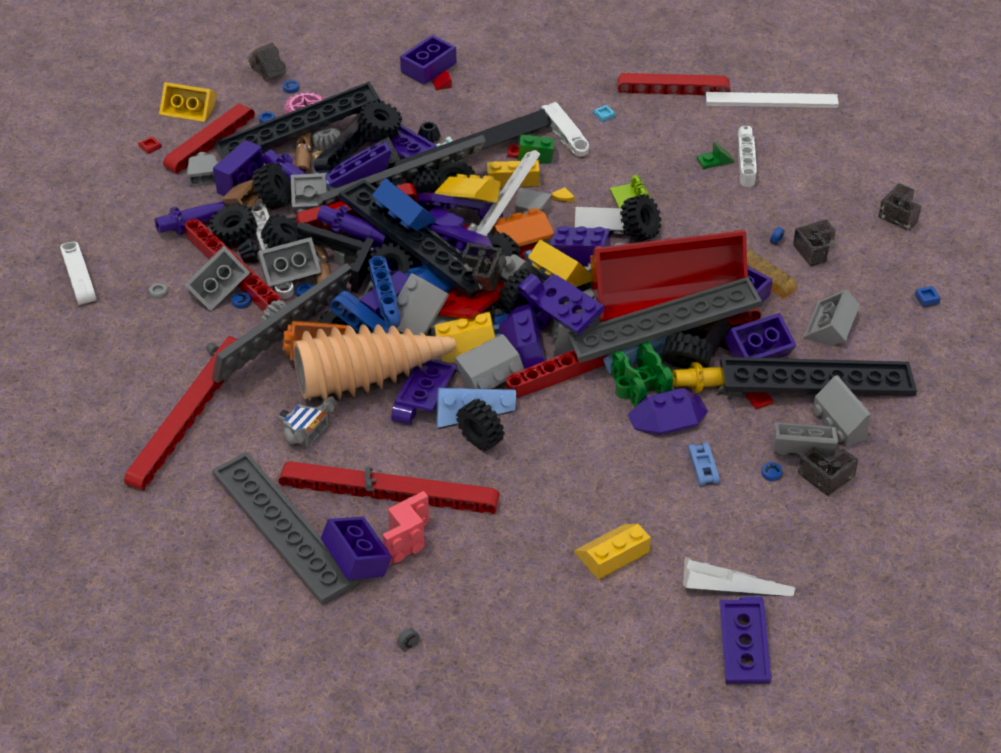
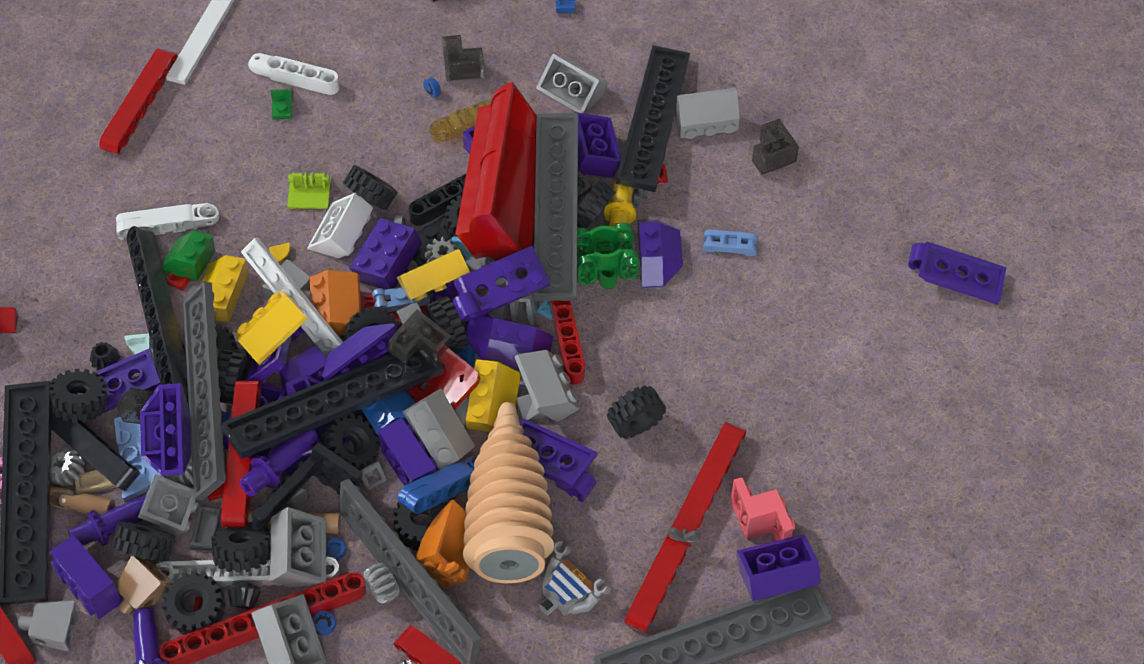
camera: 75 degrees left, 10 degrees up
(384, 291) = (413, 441): blue piece -> none
(402, 206) = (293, 393): blue slope -> none
(408, 639) = (899, 549): dark grey tile -> none
(452, 399) = (591, 416): light blue wing -> none
(604, 113) = (152, 177): medium azure tile -> none
(614, 549) = (822, 344): yellow slope -> none
(710, 577) = (877, 283): white wedge -> none
(771, 471) = (754, 193): blue tile -> none
(802, 438) = (734, 150): light grey slope -> none

